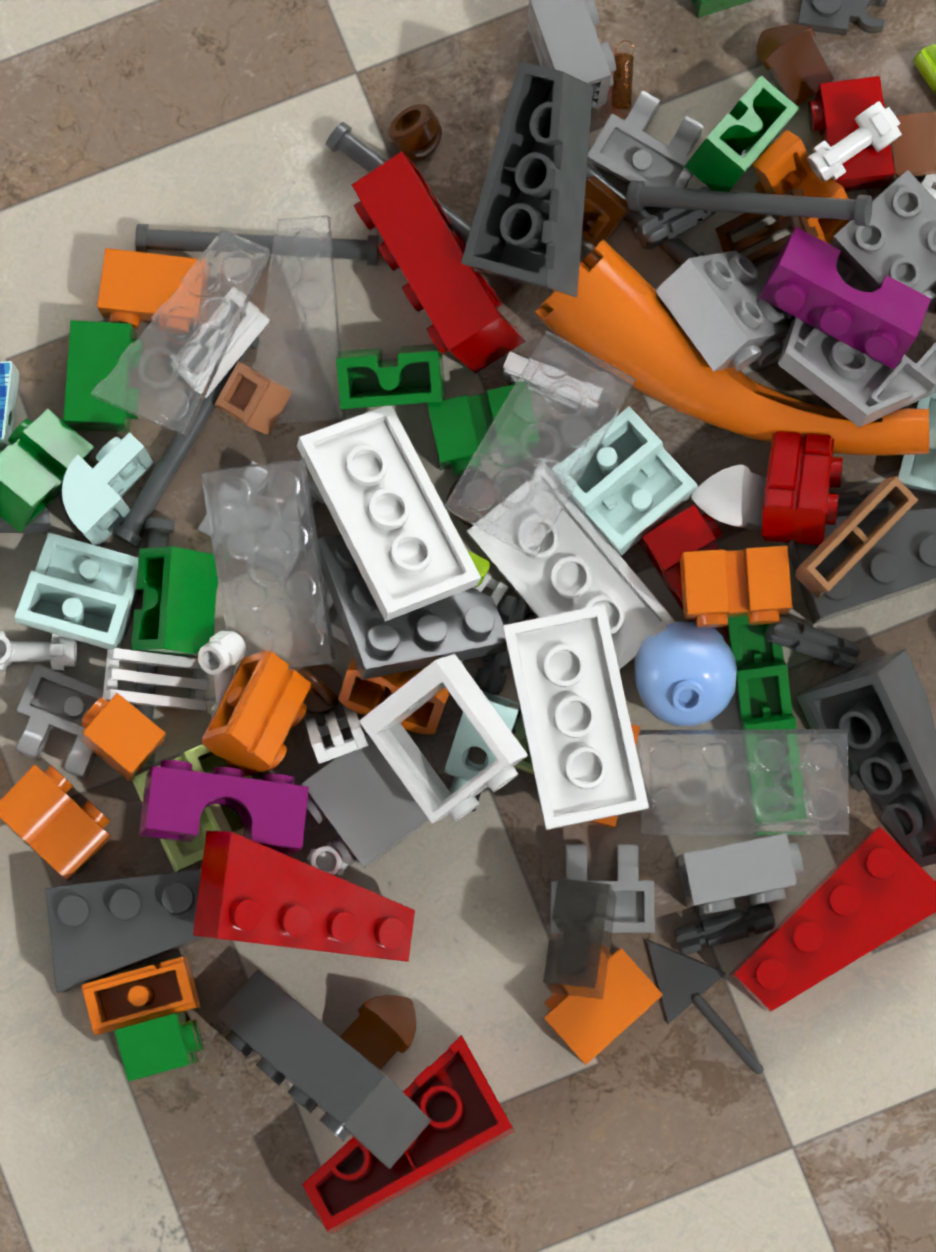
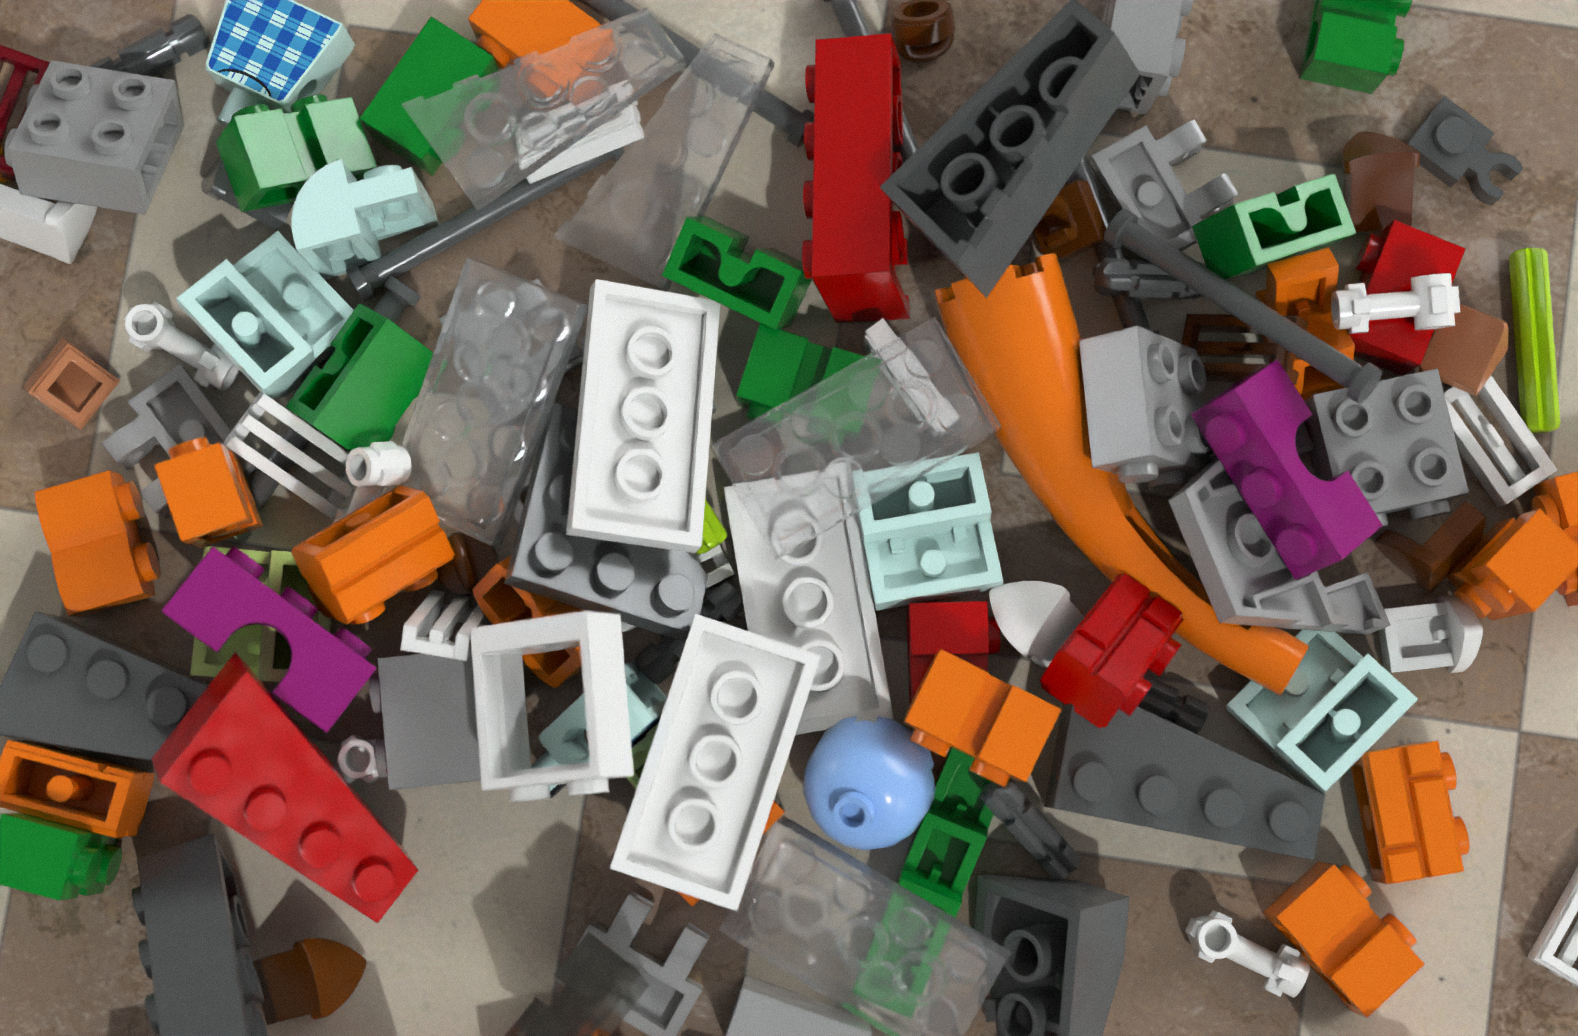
camera: 30 degrees right, 0 degrees up
(253, 398) = (578, 212): nougat slope -> none
(623, 80) = (1179, 98): clear orange piece -> none
(890, 488) = (1214, 711): medium nougat piece -> none

